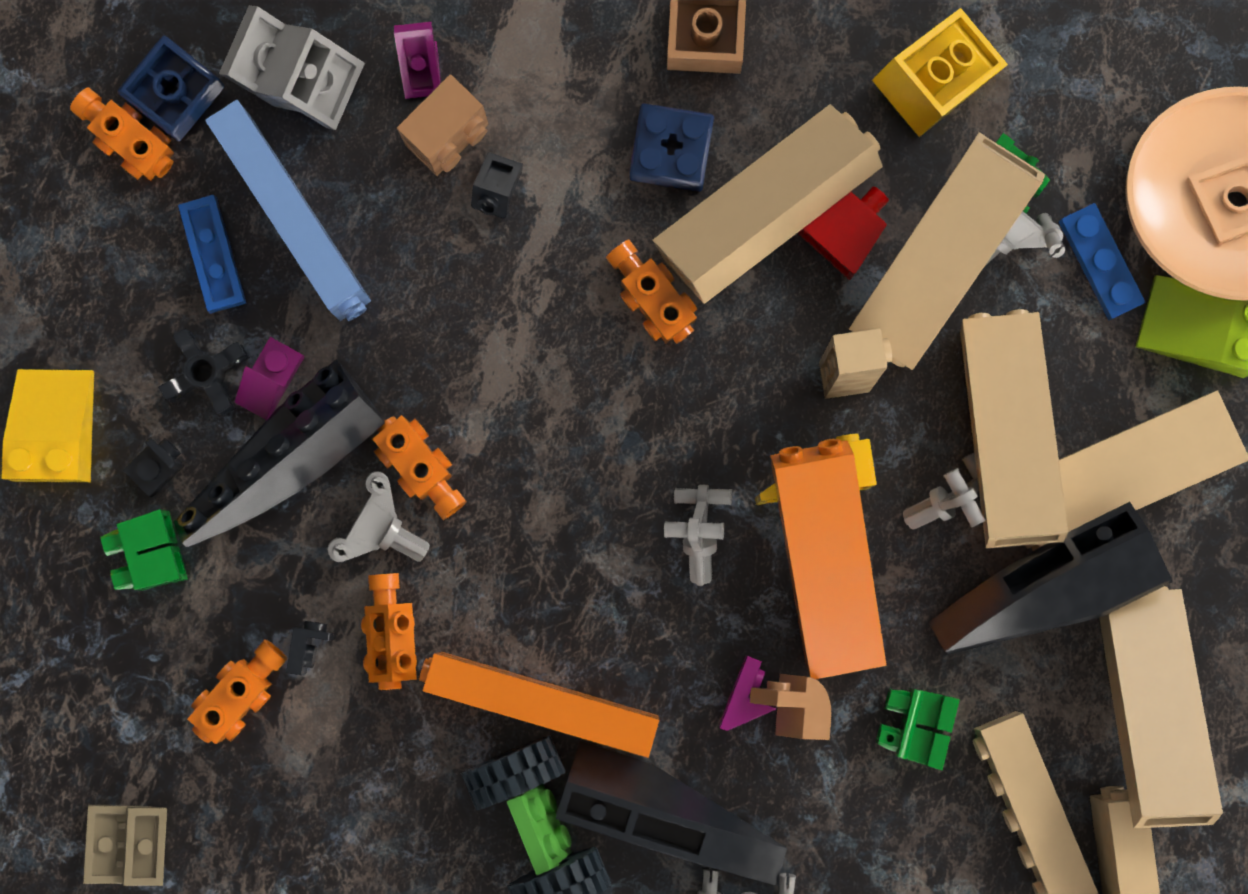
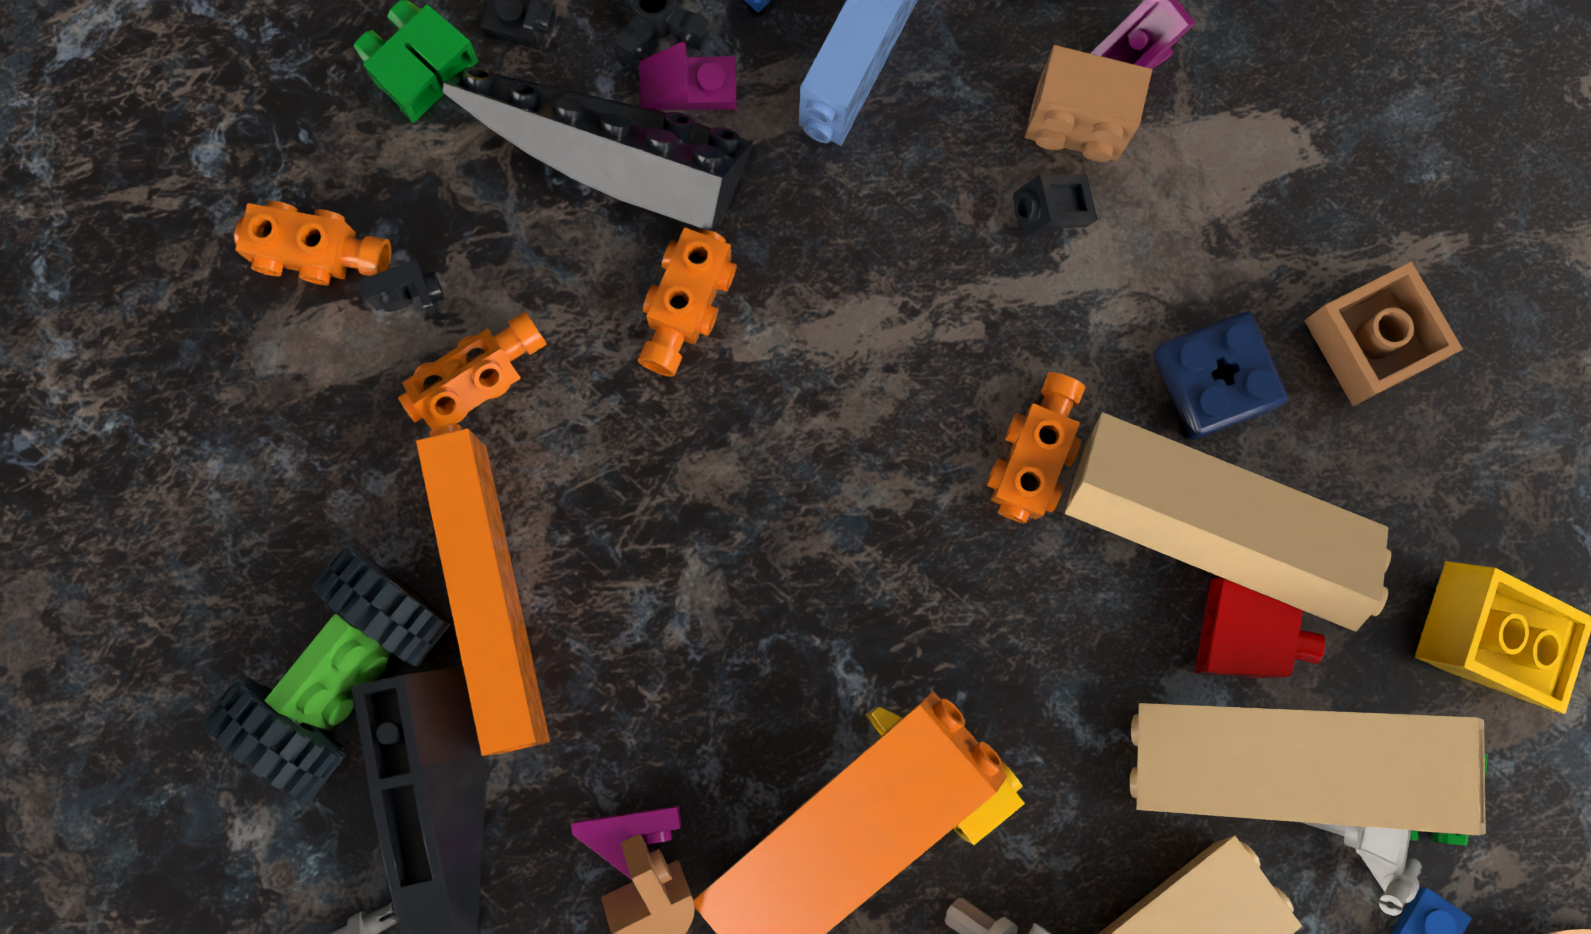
camera: 50 degrees right, 5 degrees down
(125, 845) = (71, 219): dark tan slope -> none
(377, 527) = (586, 291): light grey axle -> none
(699, 535) = (790, 663): light grey axle -> none
(854, 362) = (1107, 730): tan brick -> none

